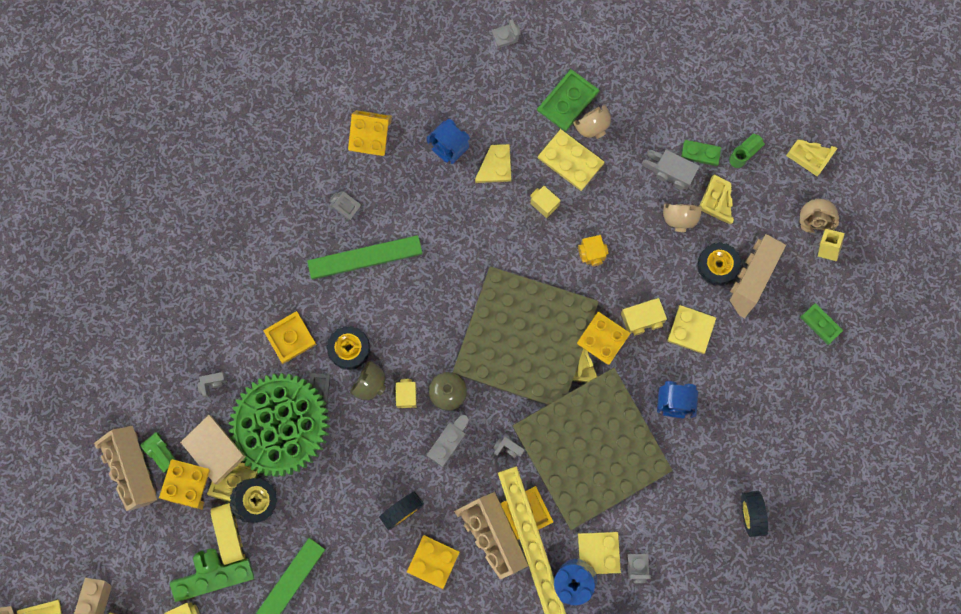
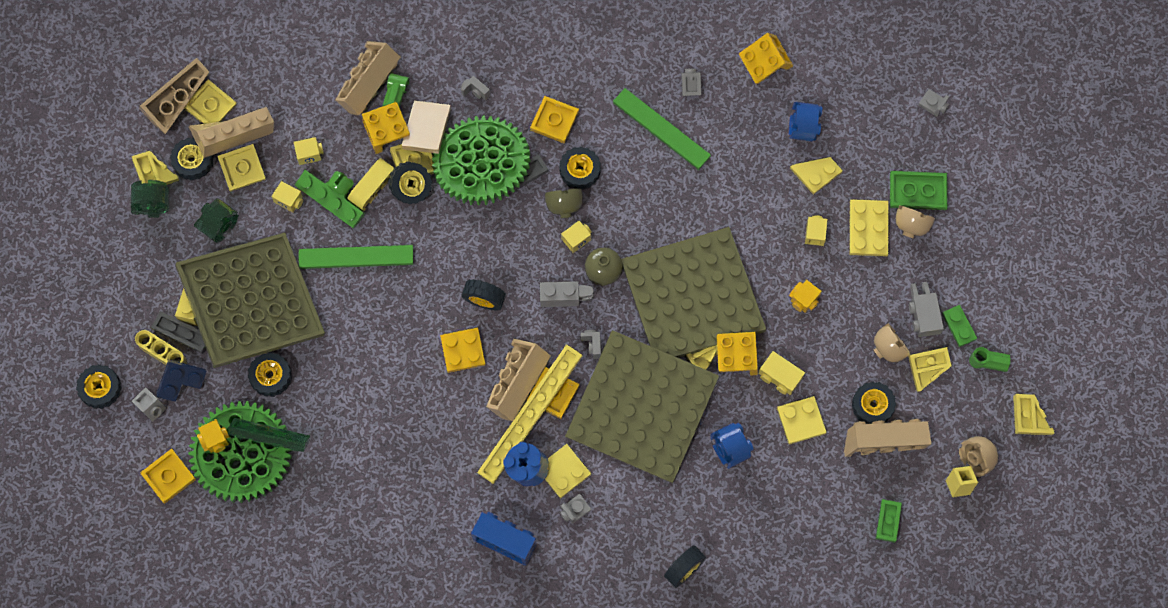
camera: 55 degrees right, 5 degrees down
(154, 567) = (308, 151): none -> light yellow brick

